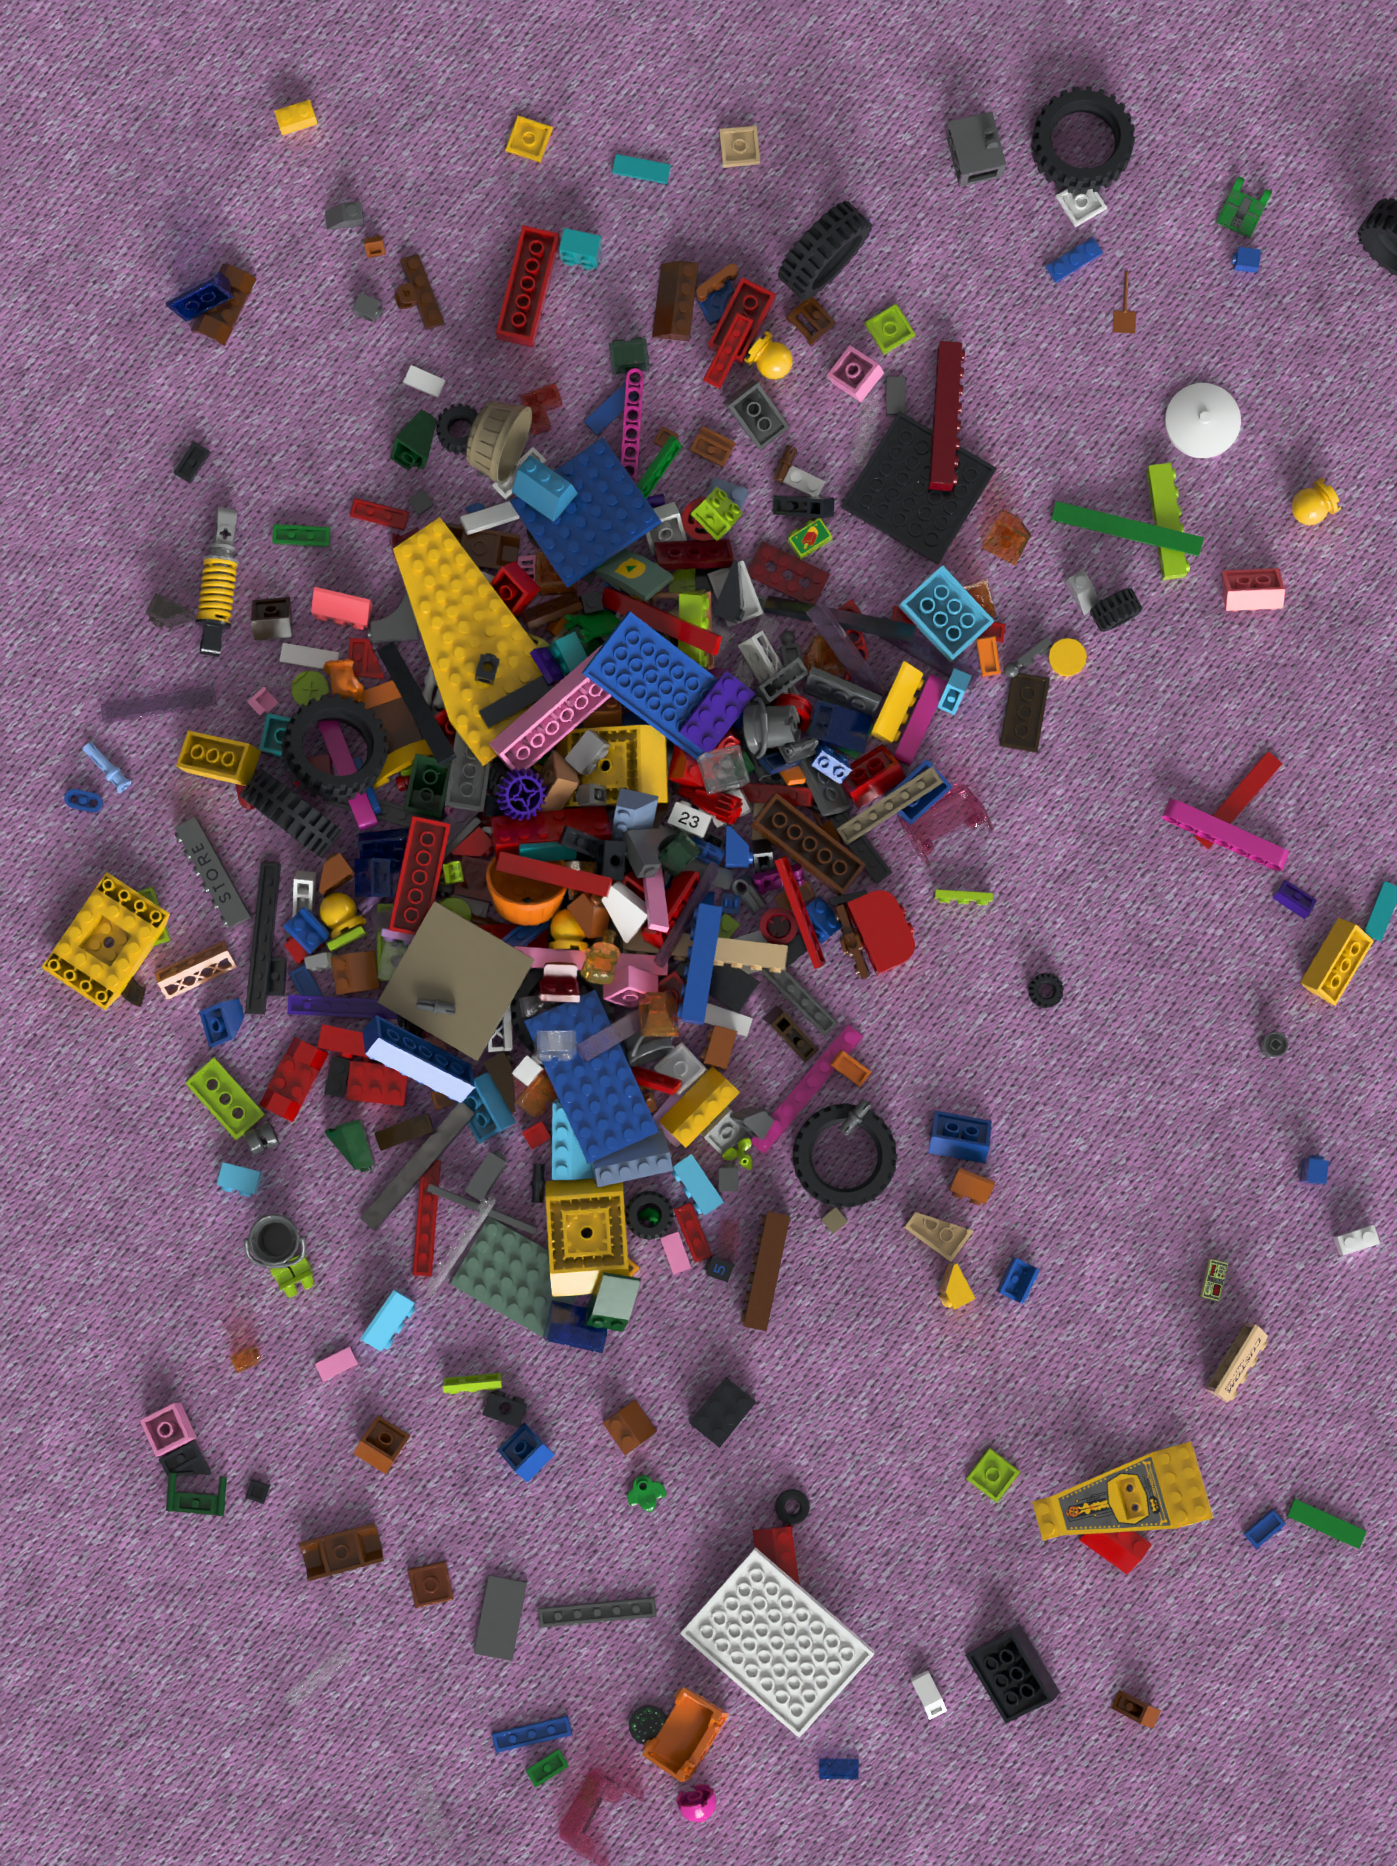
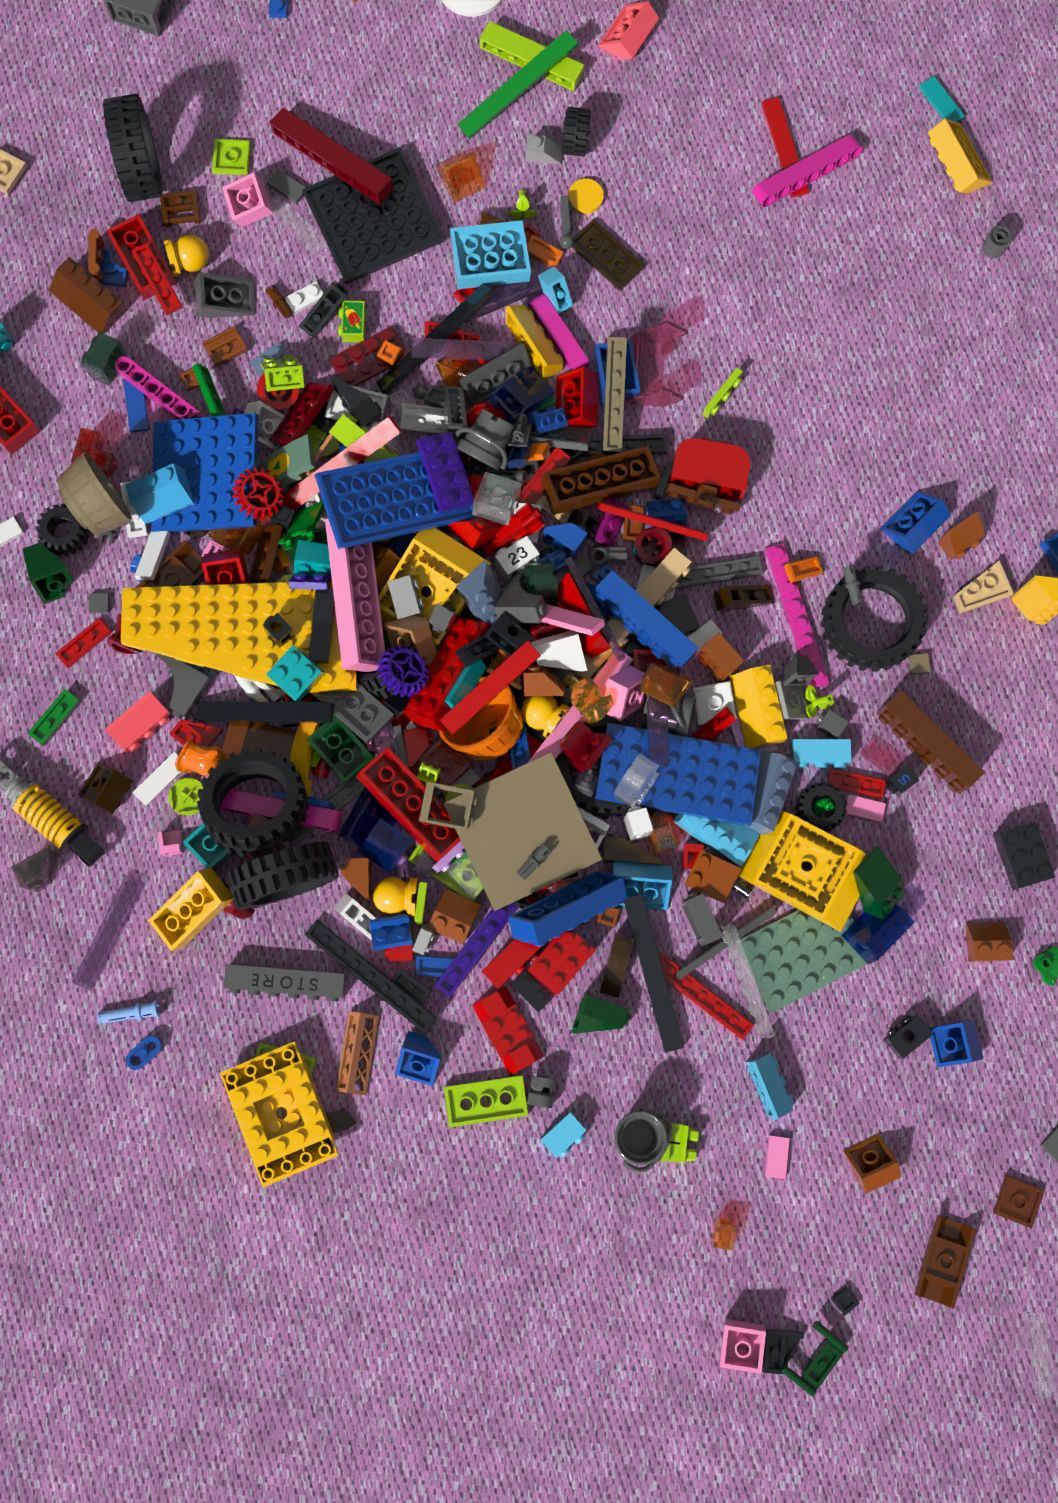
camera: 60 degrees left, 5 degrees down
(410, 895) = (471, 802): none -> dark tan window
(459, 709) = (295, 673): none -> teal brick
(472, 1383) = (868, 1049): lime plate -> none
(529, 1161) = (713, 876): none -> dark orange slope
(589, 578) = (261, 500): none -> red gear
(801, 588) = (389, 352): none -> orange tile
(1015, 610) = (522, 206): none -> lime plant
(1057, 990) = (840, 371): black tyre -> none
(1295, 899) = (890, 157): dark purple slope -> none

